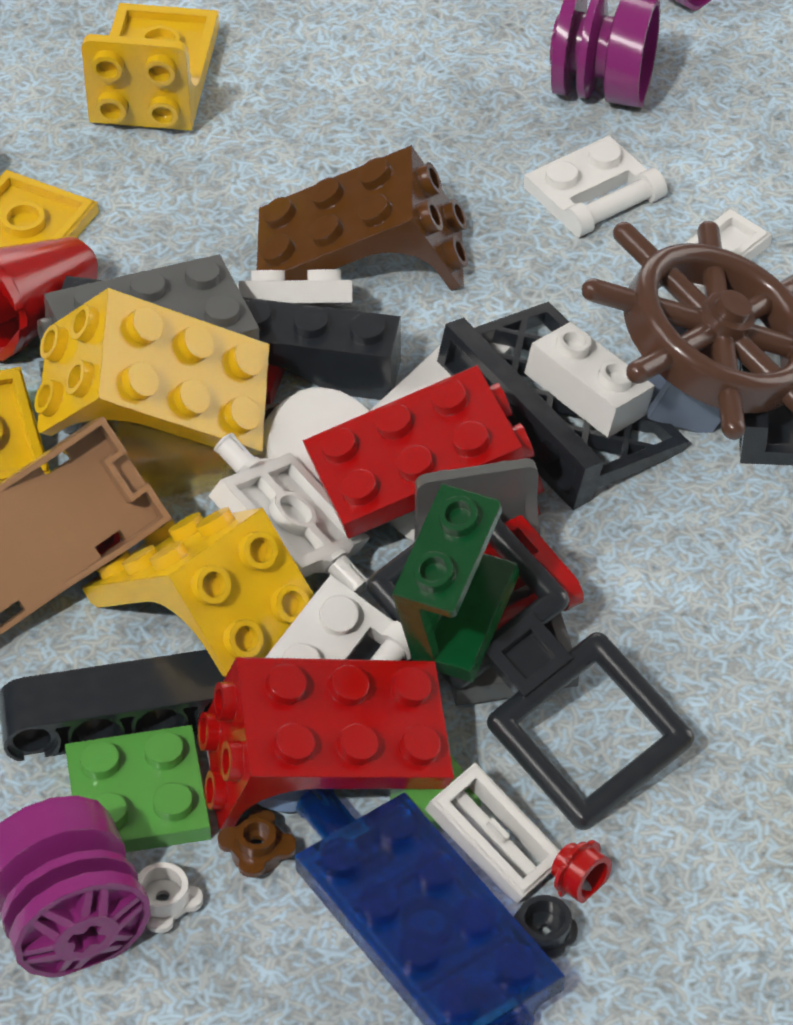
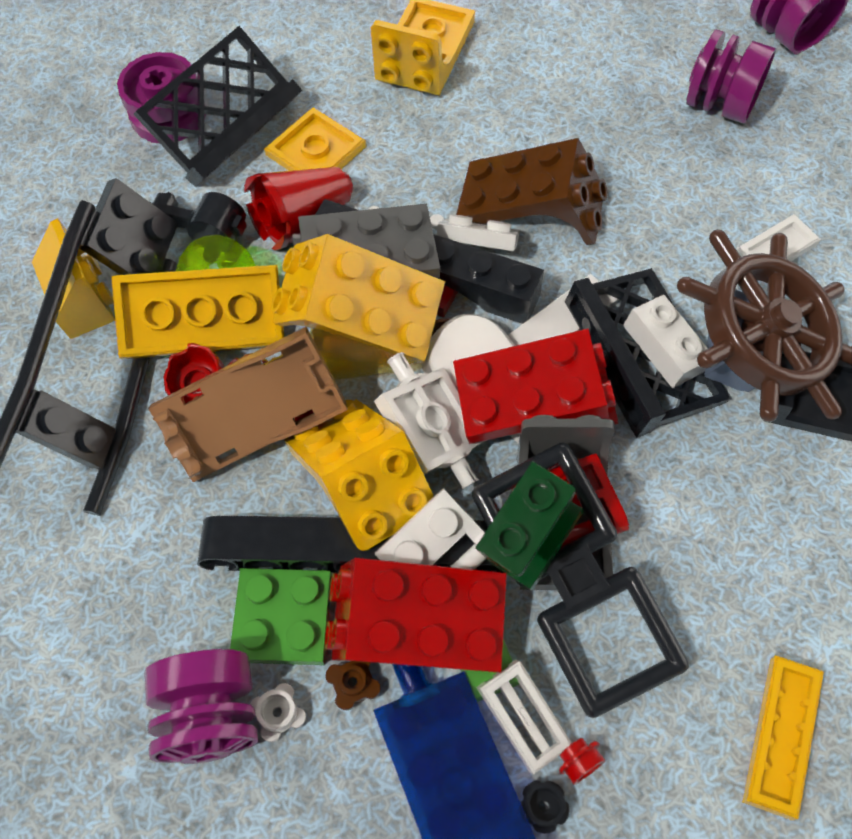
camera: 15 degrees right, 15 degrees up
(588, 173) = (699, 170): white plate -> none

